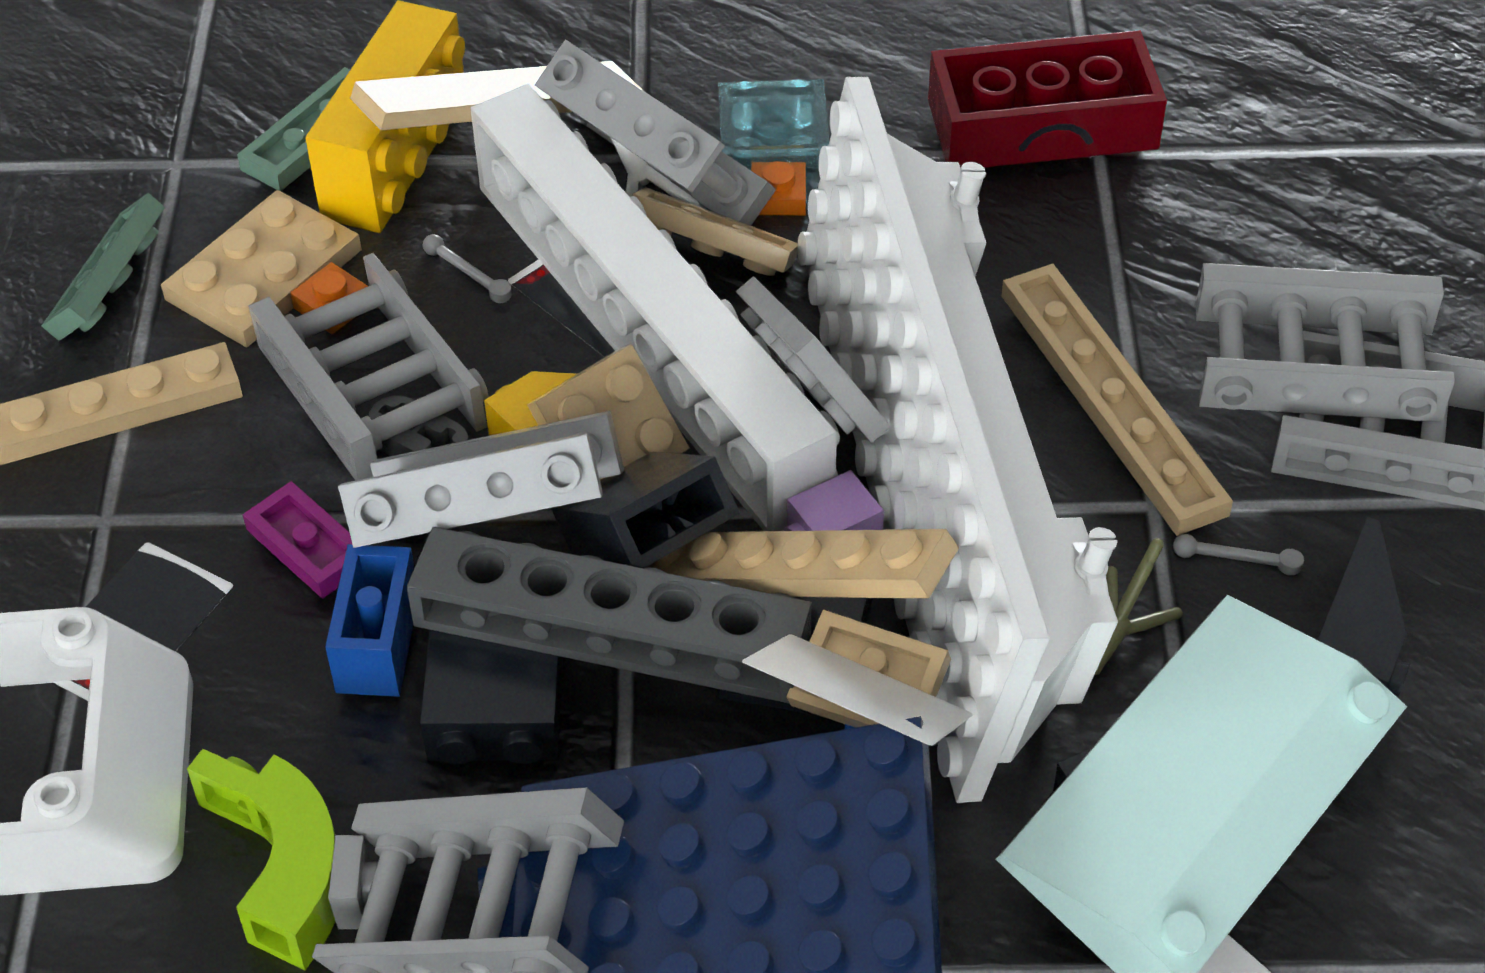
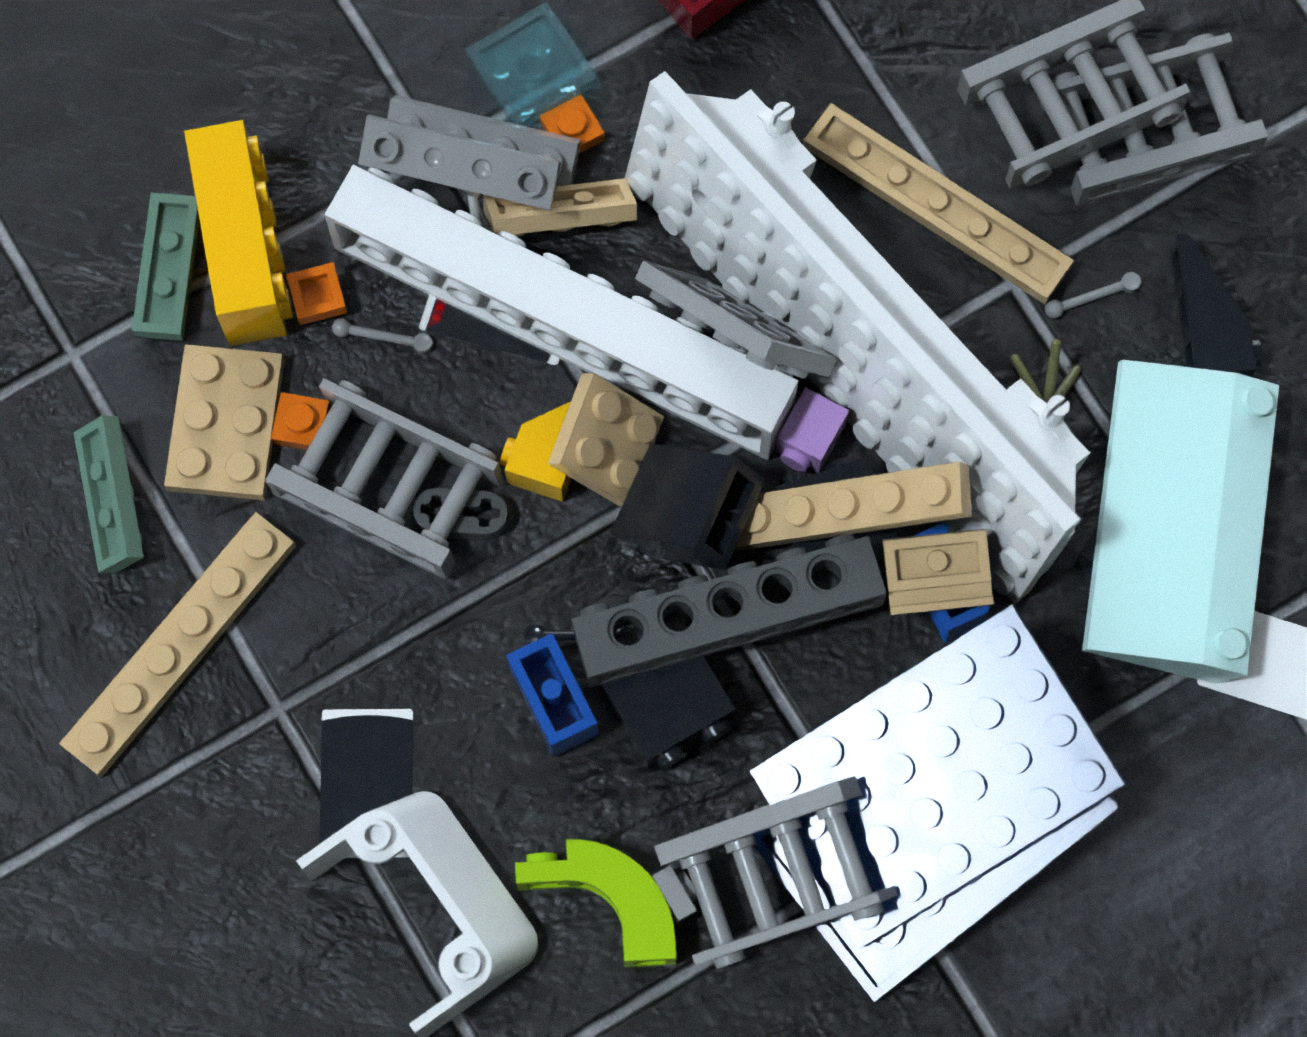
camera: 30 degrees left, 25 degrees up
(301, 537) = (446, 649): magenta plate -> none
(430, 204) = (316, 293): none -> orange plate
(443, 97) = (314, 182): tile -> none
(482, 479) = (550, 526): fence -> none
(858, 688) = (952, 599): white sticker -> none

